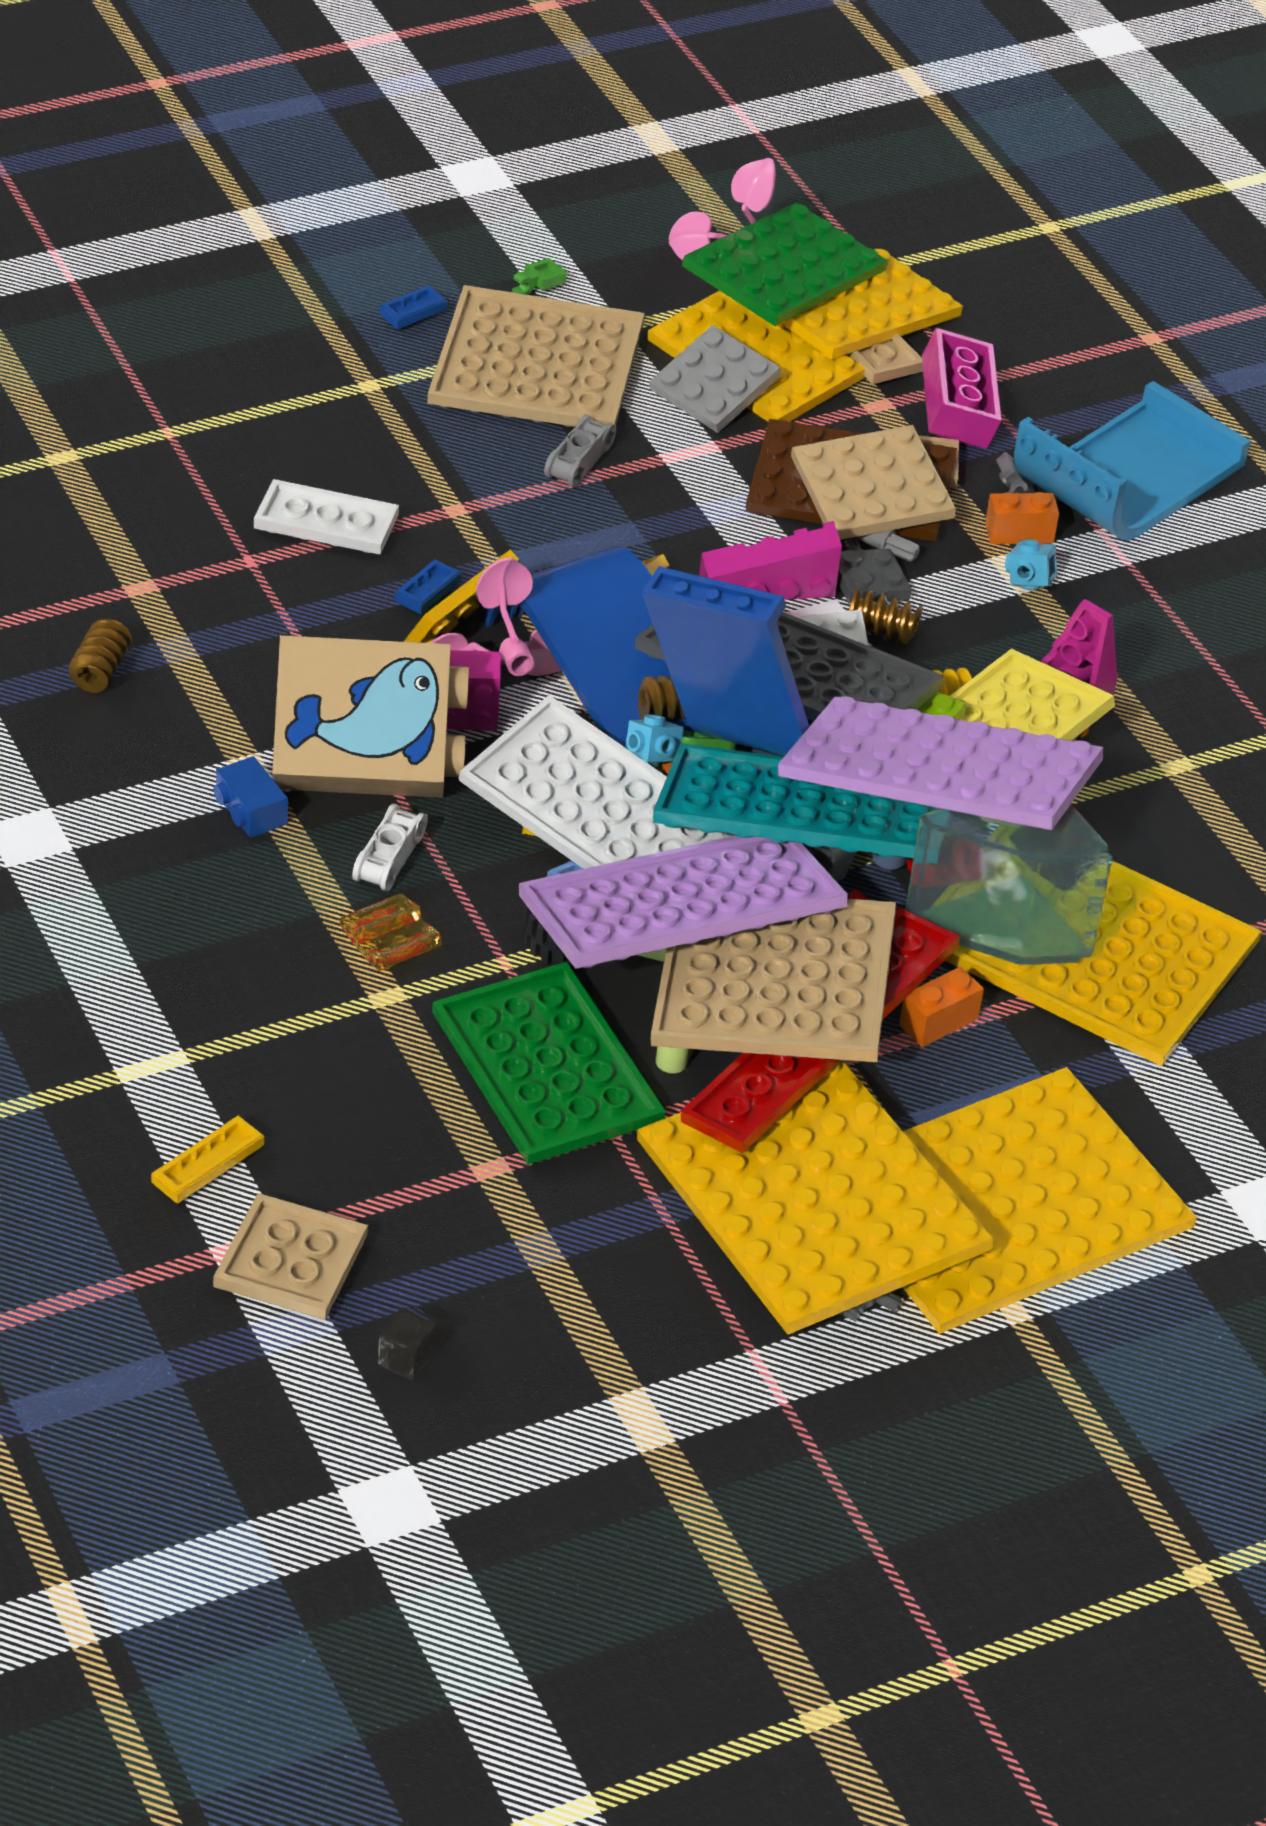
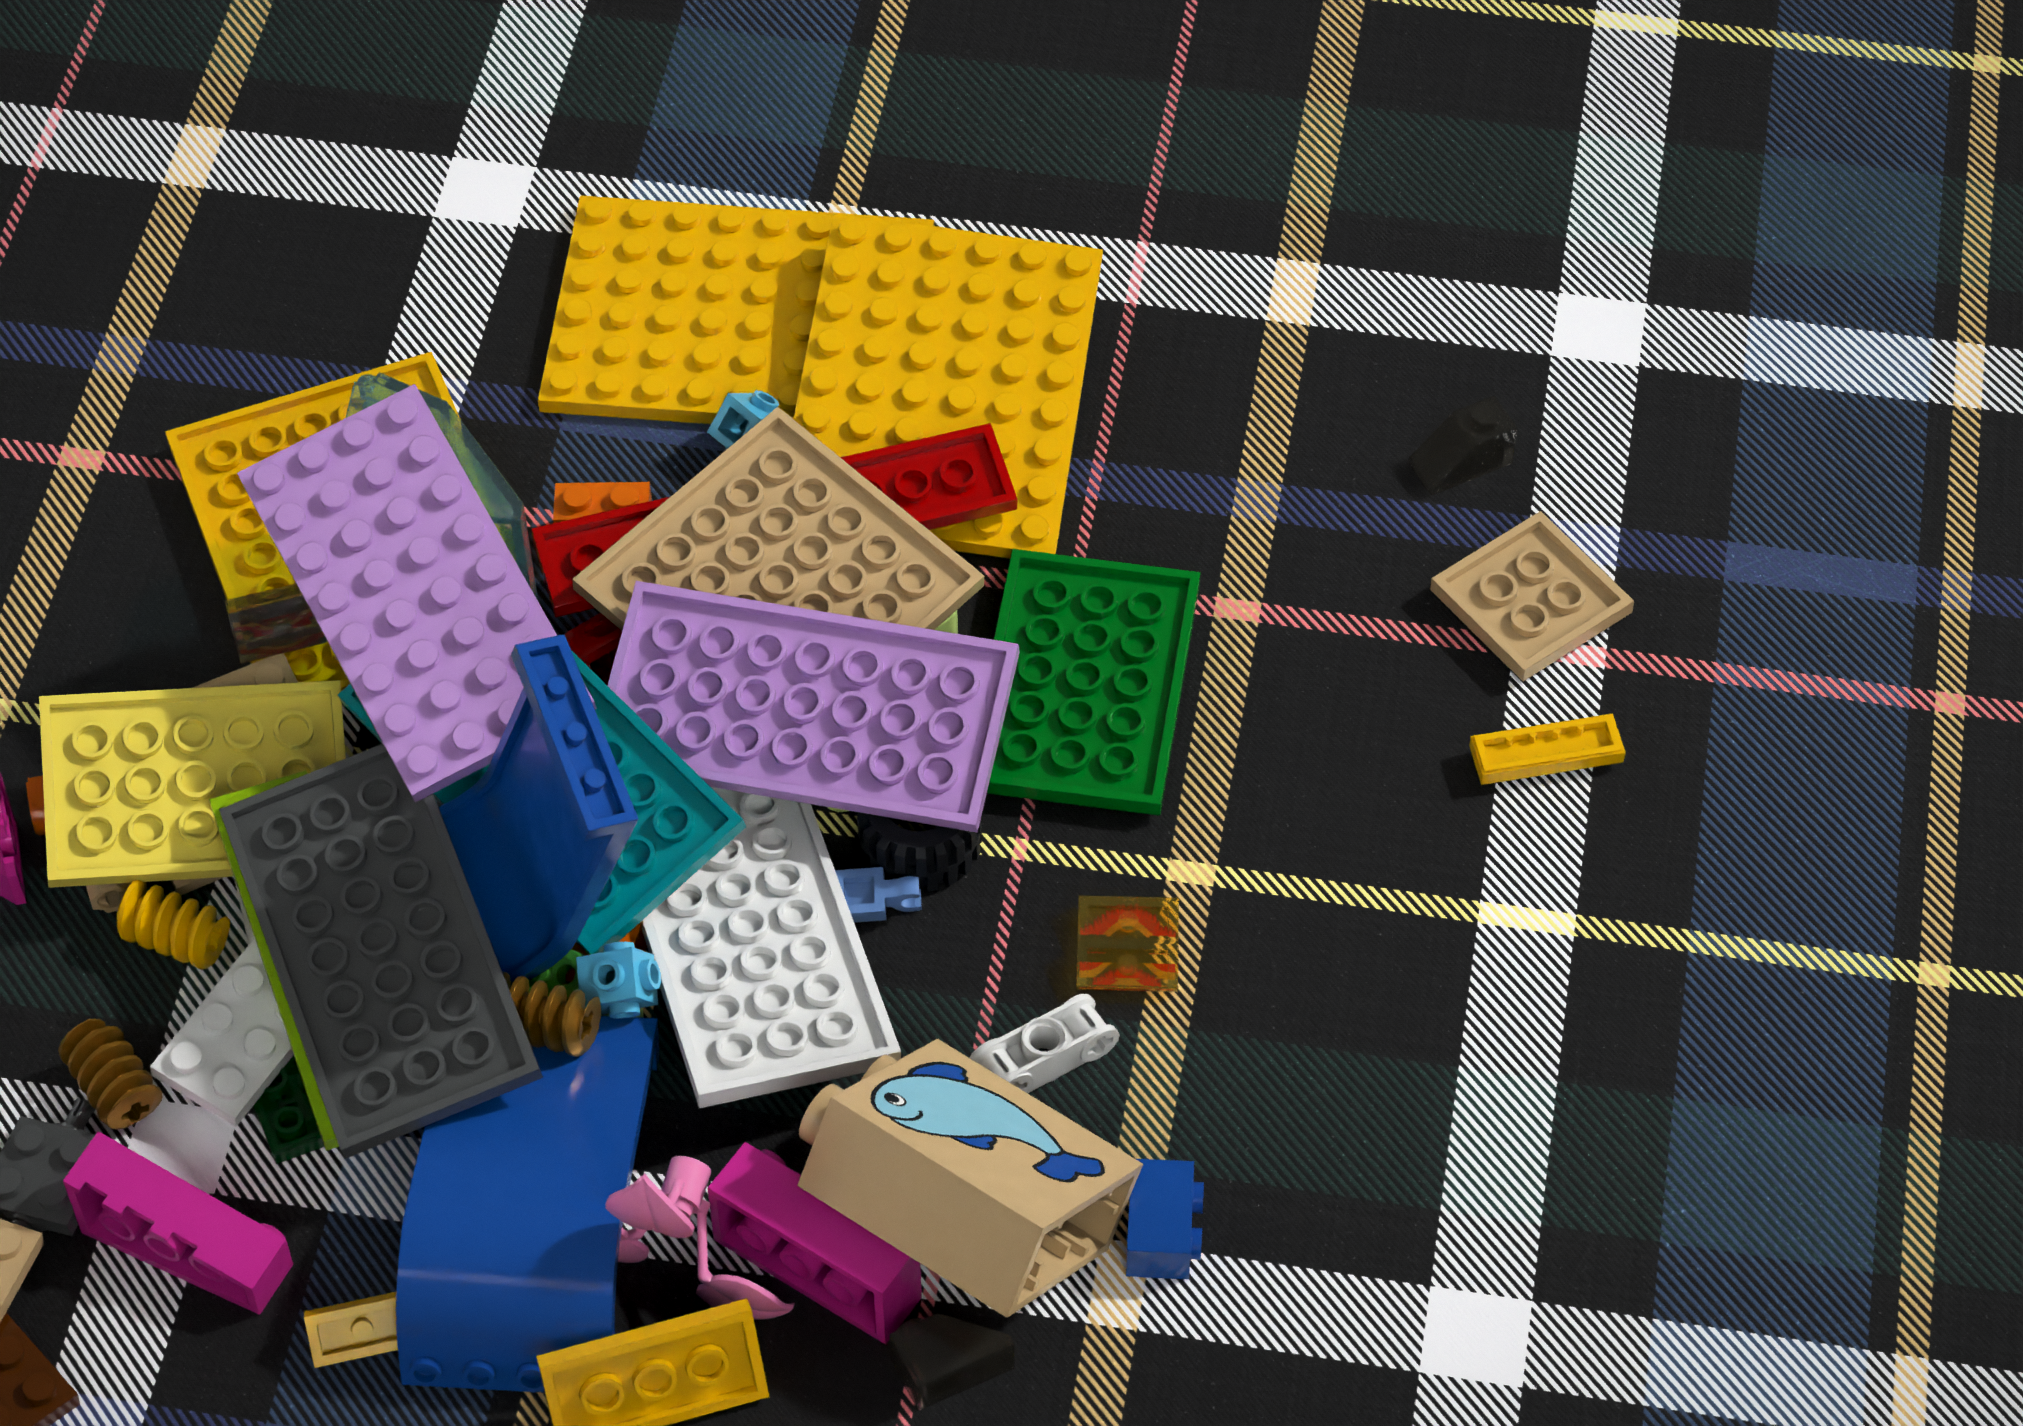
camera: 140 degrees left, 10 degrees up
(912, 1087) = (740, 414): none -> medium azure brick

